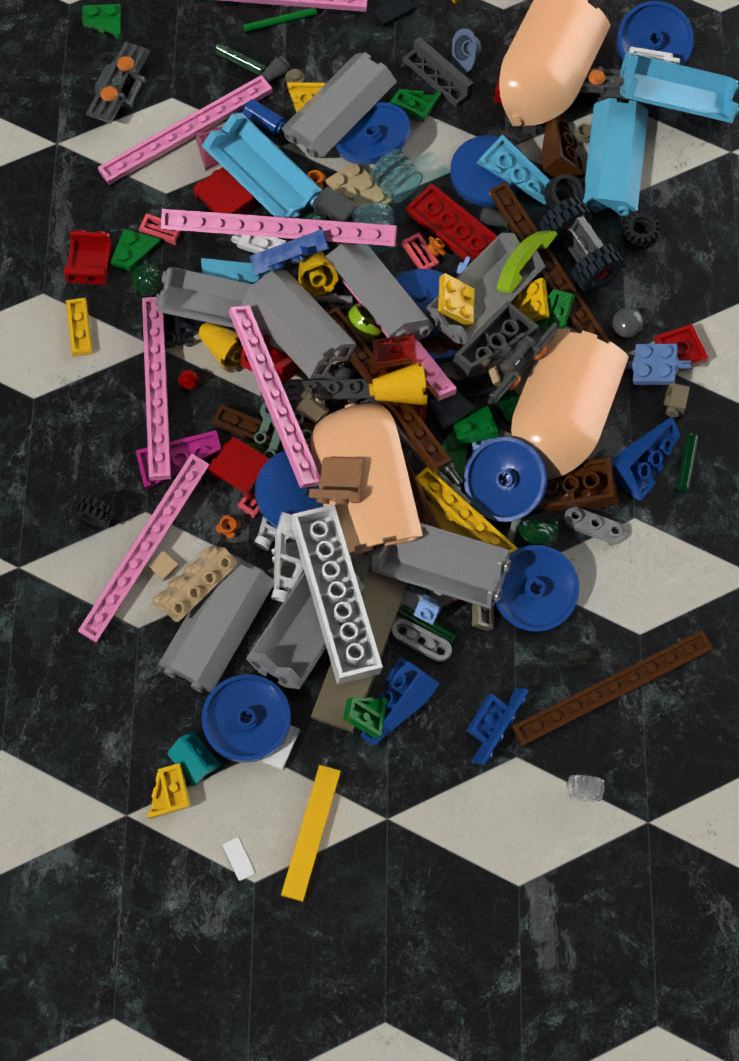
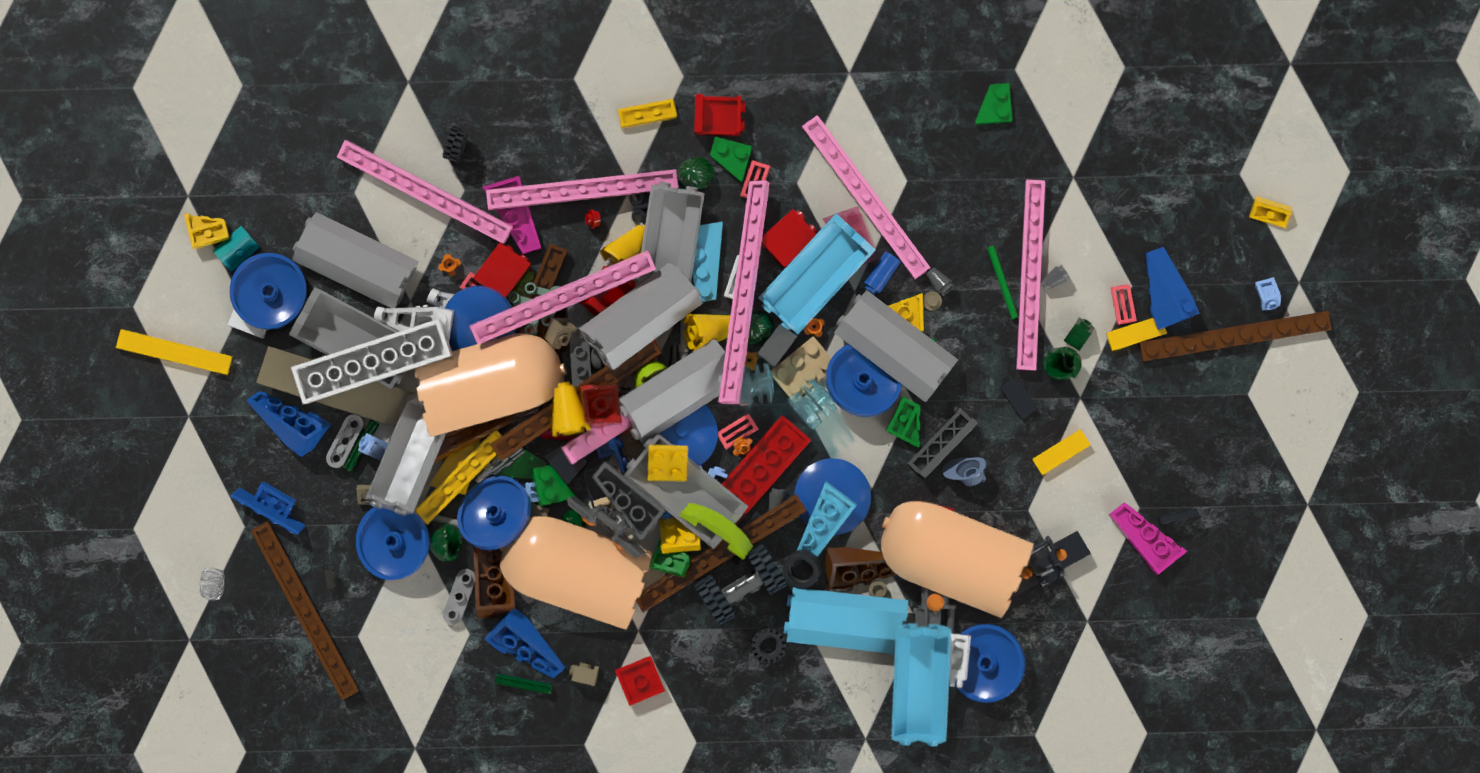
camera: 90 degrees right, 15 degrees up
(112, 79) = (916, 120): dark grey piece -> none
(163, 566) = (411, 209): tan tile -> none
(194, 583) = (388, 237): tan bracket -> none
(238, 859) = (152, 292): white sticker -> none
(240, 59) = (952, 245): dark green axle -> none
(289, 252) = (715, 303): blue bracket -> none
(339, 481) = (470, 359): medium nougat bracket -> none
(366, 714) = (269, 393): green wing -> none
(627, 322) = (667, 631): dark grey hair -> none
(656, 364) = (619, 655): medium blue plate -> none

